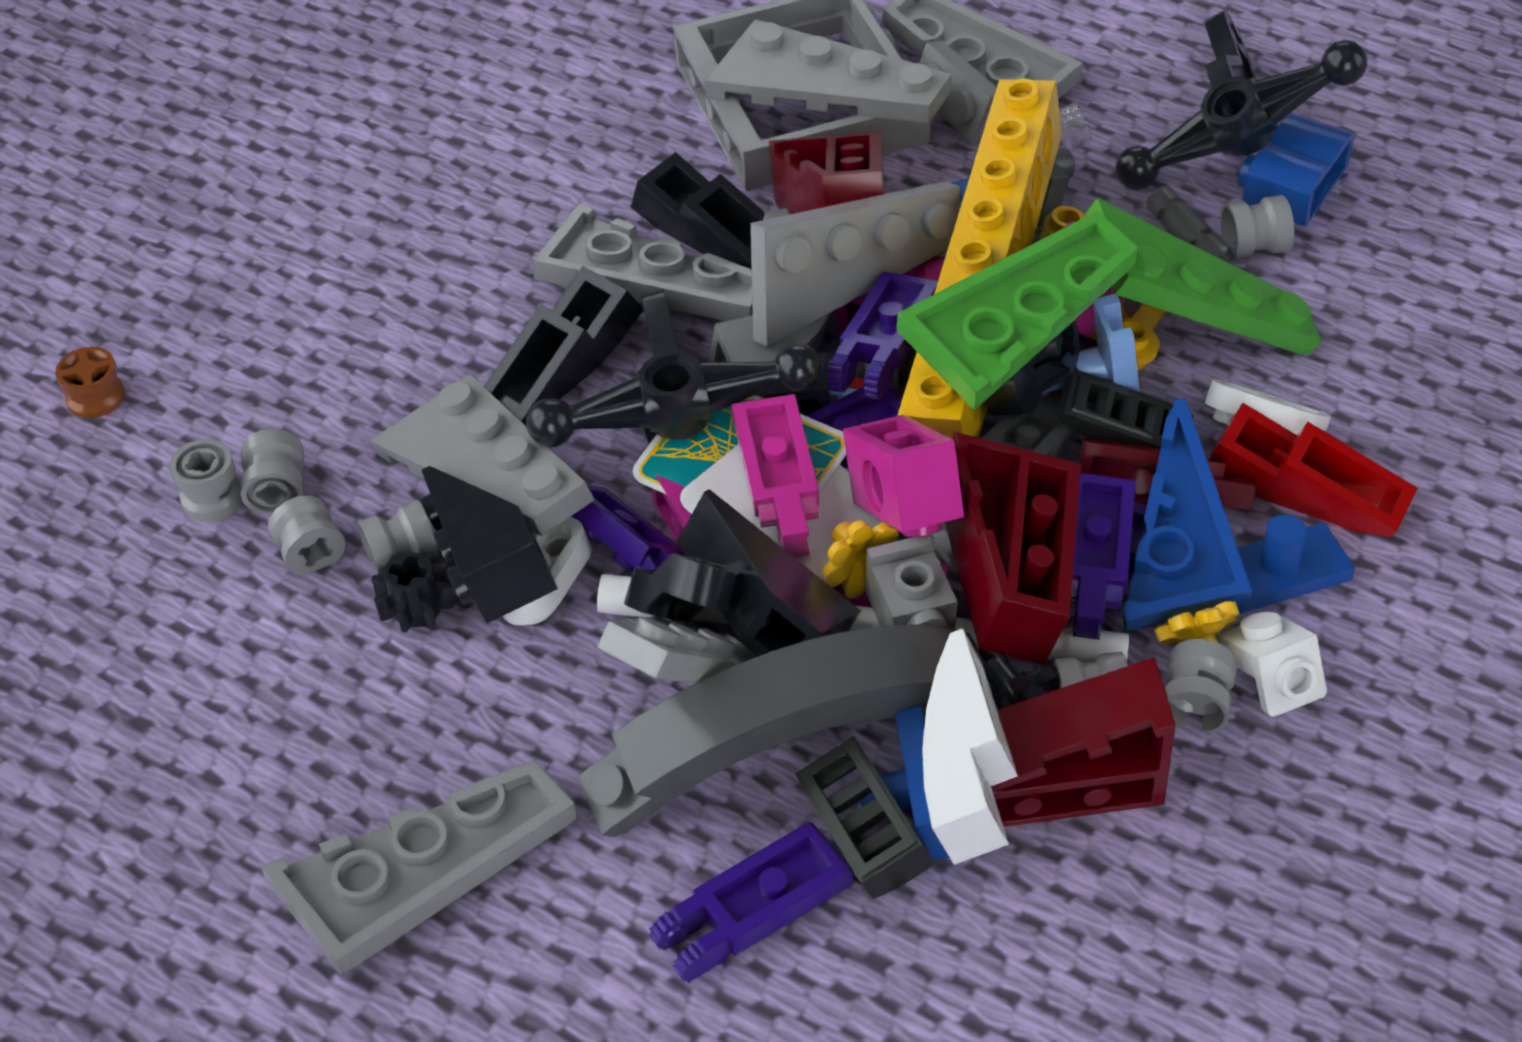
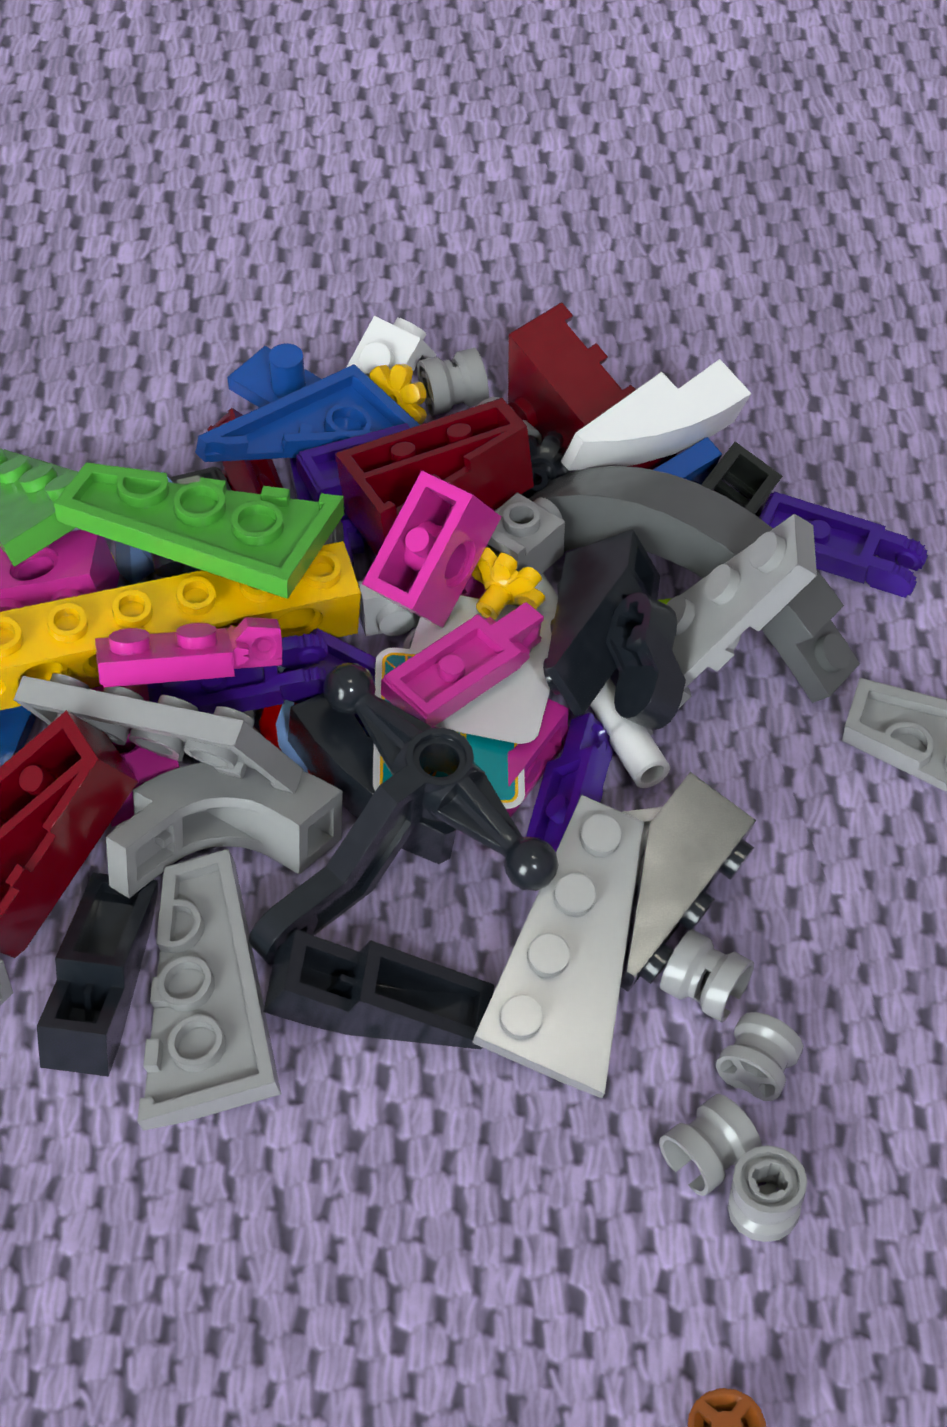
camera: 125 degrees left, 5 degrees up
(412, 590) = (753, 923): black gear -> none
(901, 265) = (188, 654): none -> dark pink hinge
(1228, 397) = (124, 434): white plate -> none
(1313, 474) = (180, 402): red slope -> none

